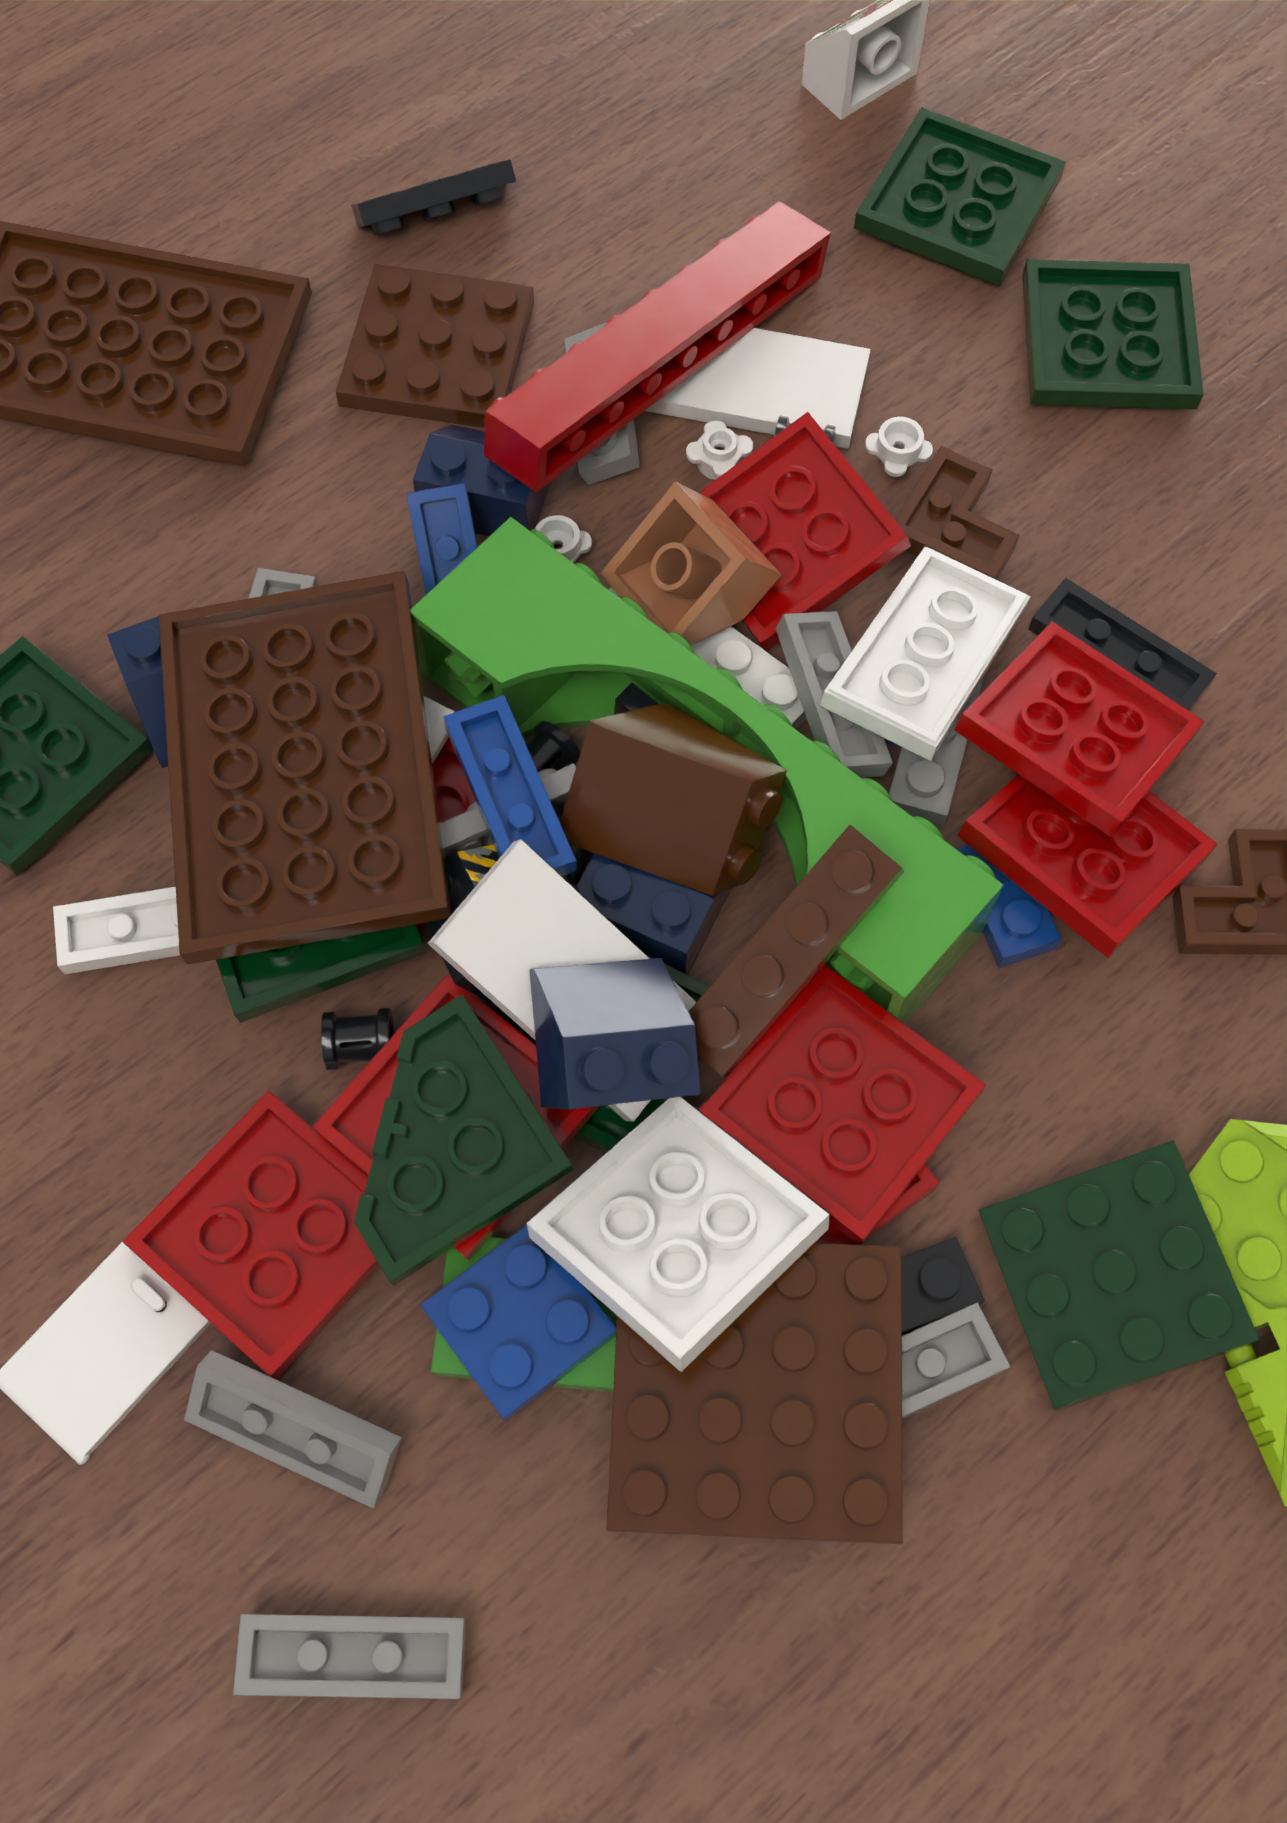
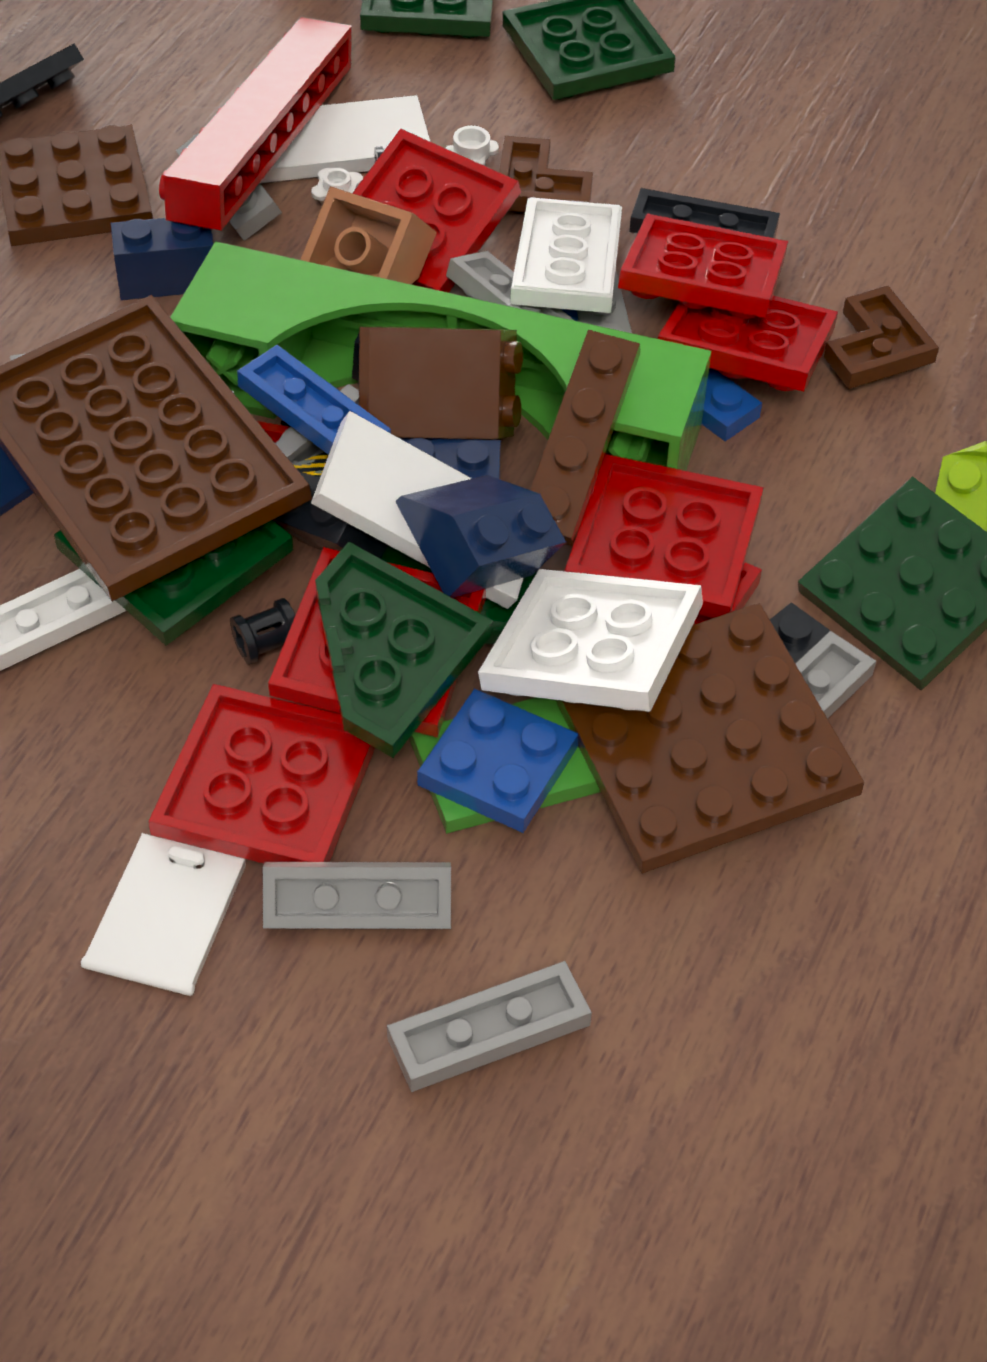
camera: 25 degrees left, 15 degrees down
(441, 530) = (153, 273): blue plate -> none

